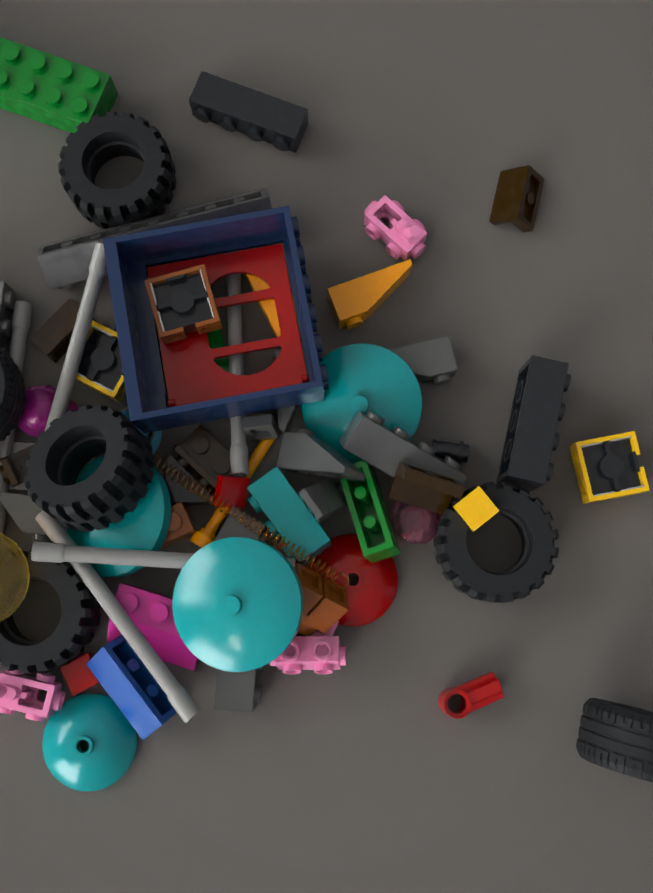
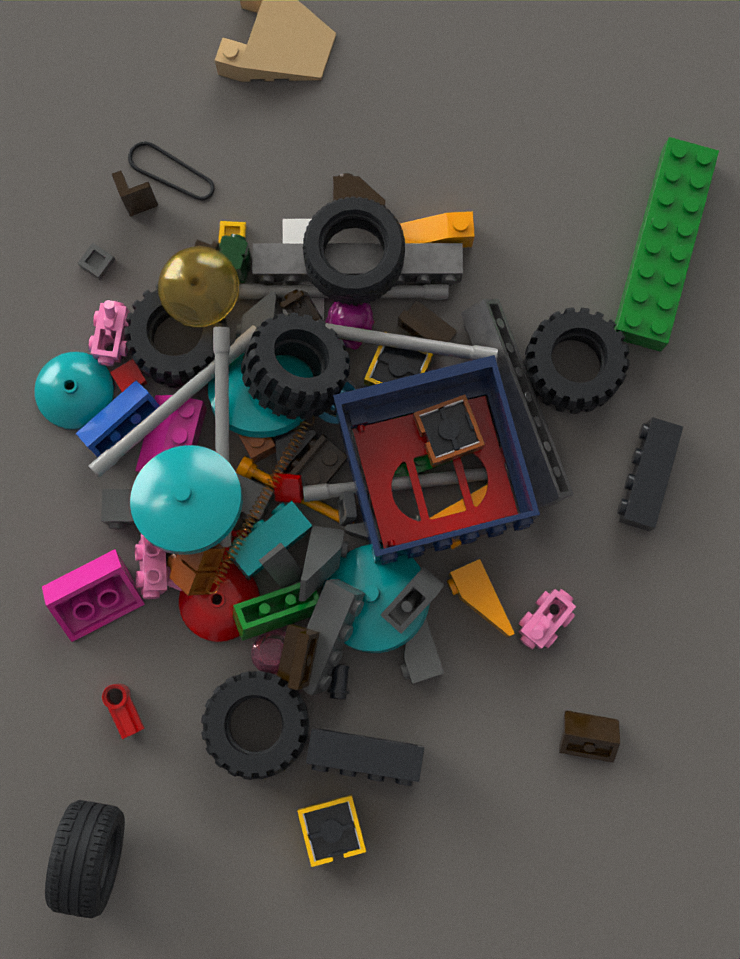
camera: 85 degrees right, 0 degrees up
(337, 728) = (92, 595): none -> dark pink slope
(371, 355) = (412, 600): none -> dark grey slope
(476, 508) = (280, 701): yellow tile -> none

